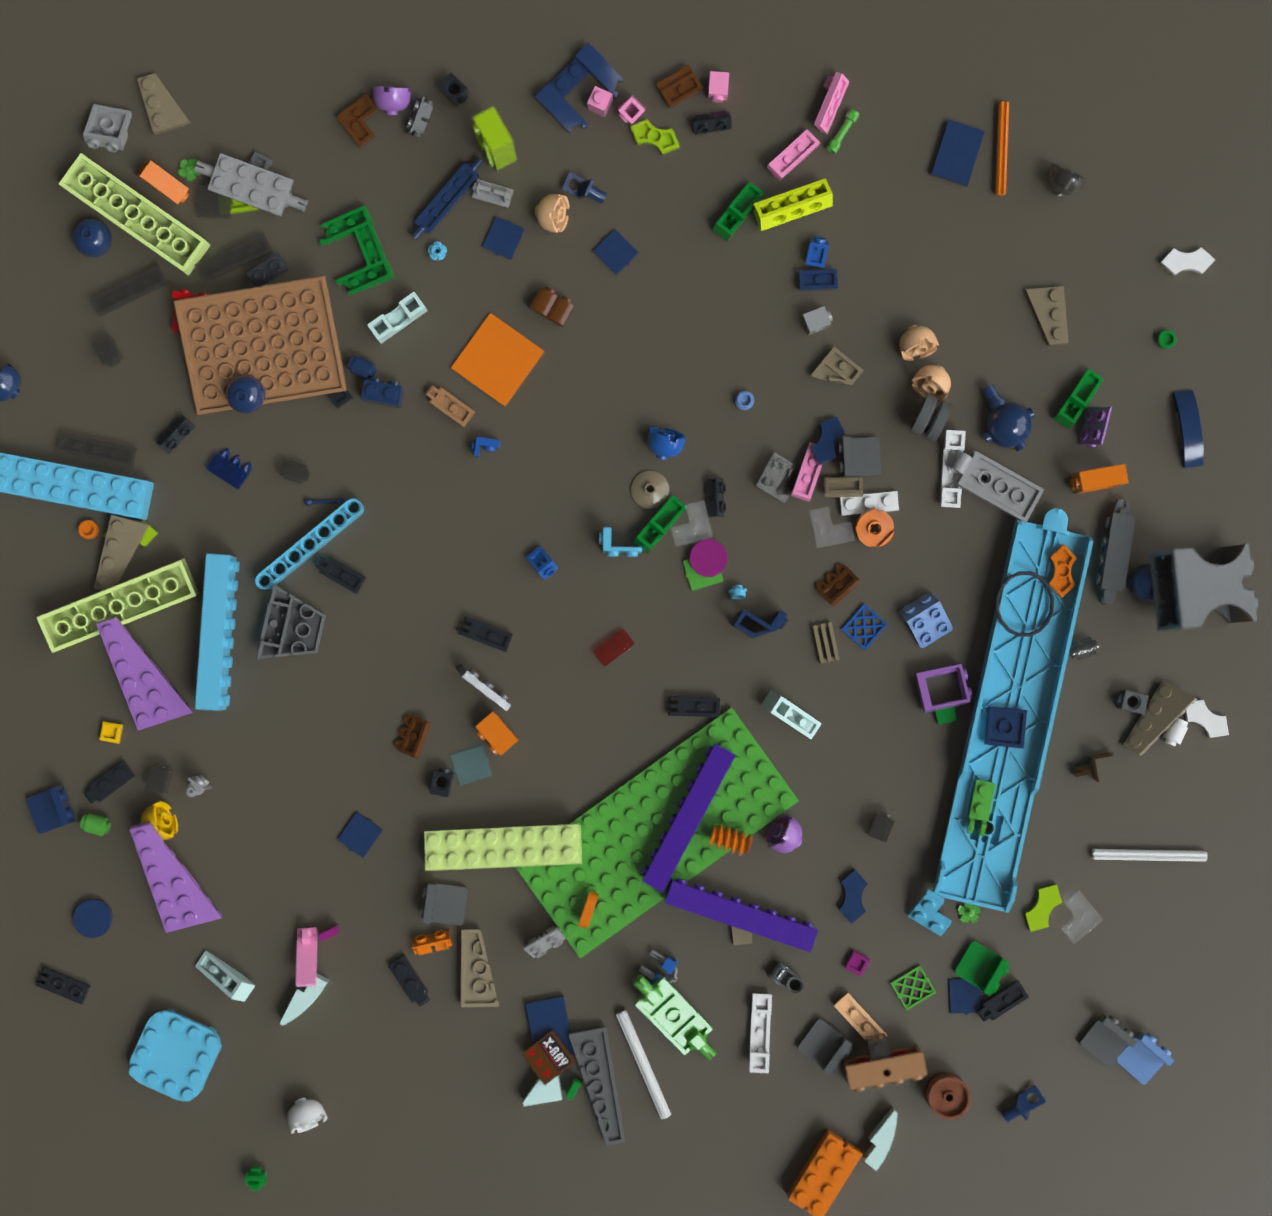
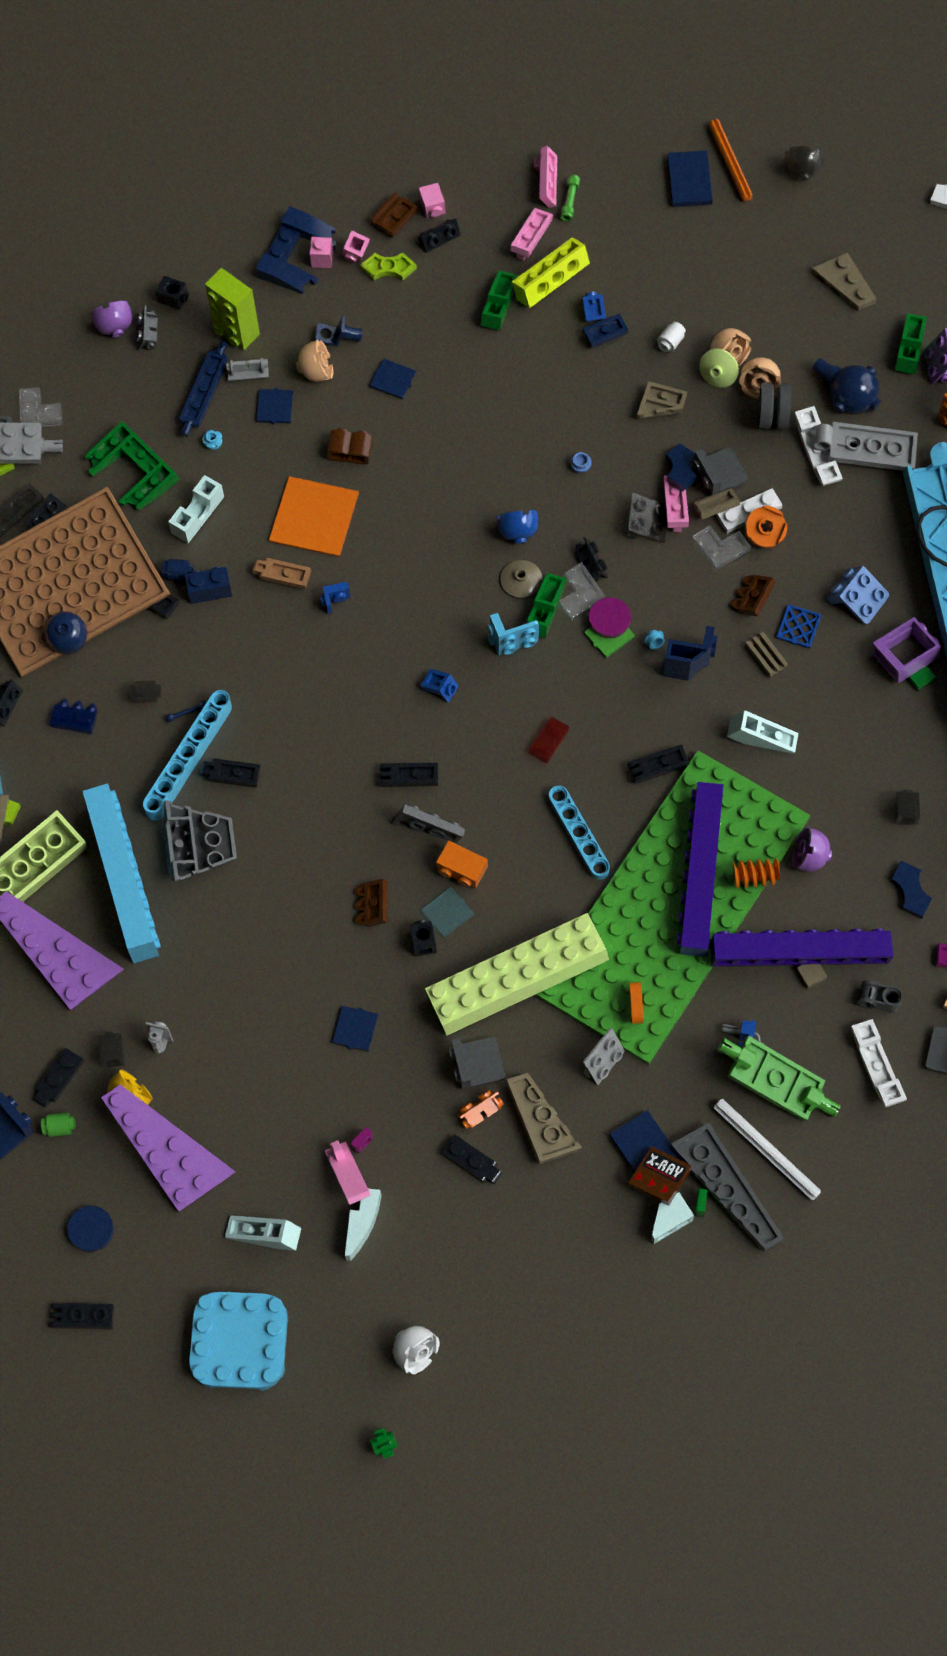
camera: 20 degrees left, 20 degrees down
(111, 732) = (41, 1024): yellow tile -> none
(293, 164) = (33, 412): none -> clear plate
(354, 120) = (83, 352): reddish brown plate -> none
(602, 749) = (579, 842): none -> medium azure beam
(817, 320) = (620, 365): light grey brick -> none
(872, 310) = (671, 337): none -> white brick
(900, 360) = (724, 363): none -> yellowish green dish

